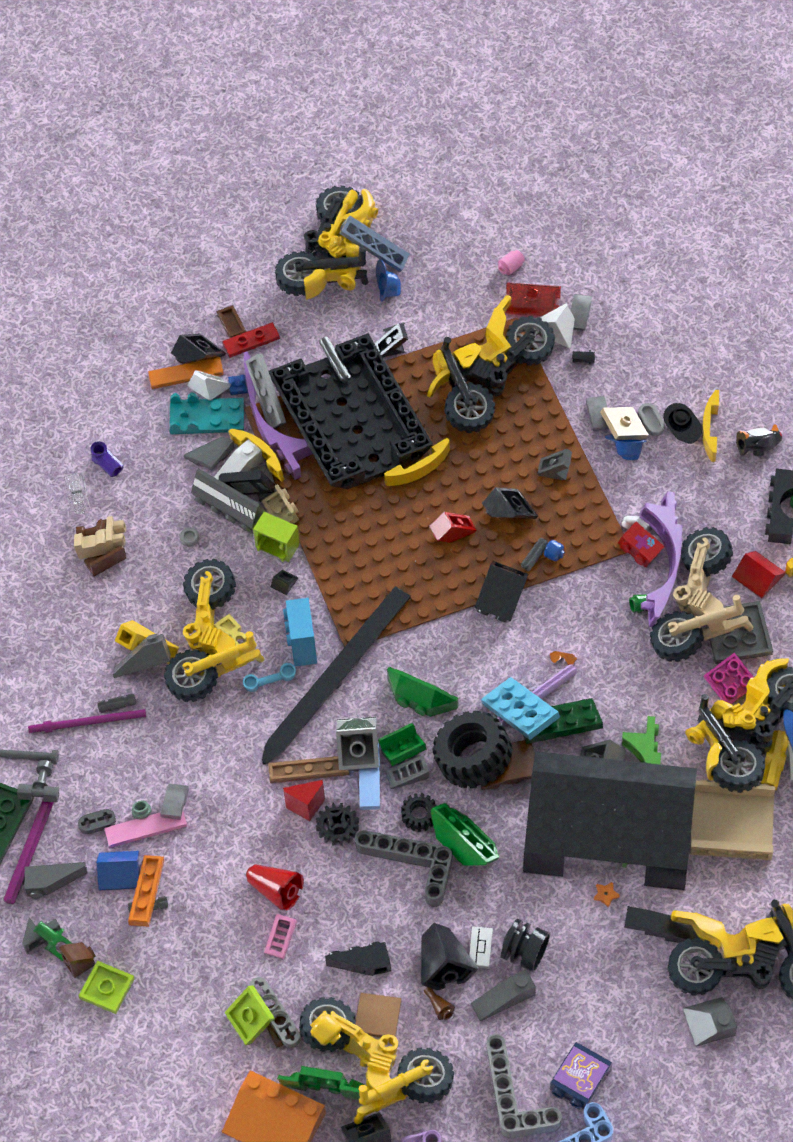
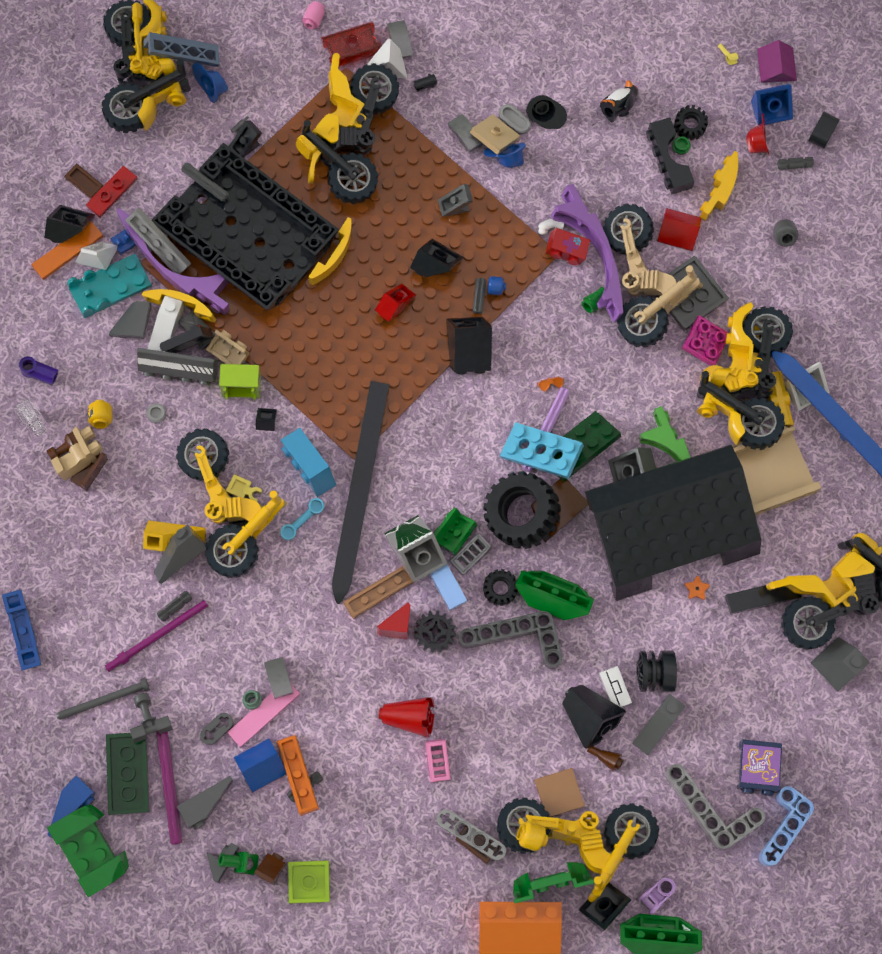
camera: 35 degrees left, 15 degrees up
(139, 516) = (100, 414): none -> yellow head
(249, 1015) = (451, 849): lime plate -> none
(364, 960) = (525, 748): black slope -> none
(420, 695) = (443, 476): green wedge -> none
(710, 443) = (578, 122): yellow slope -> none

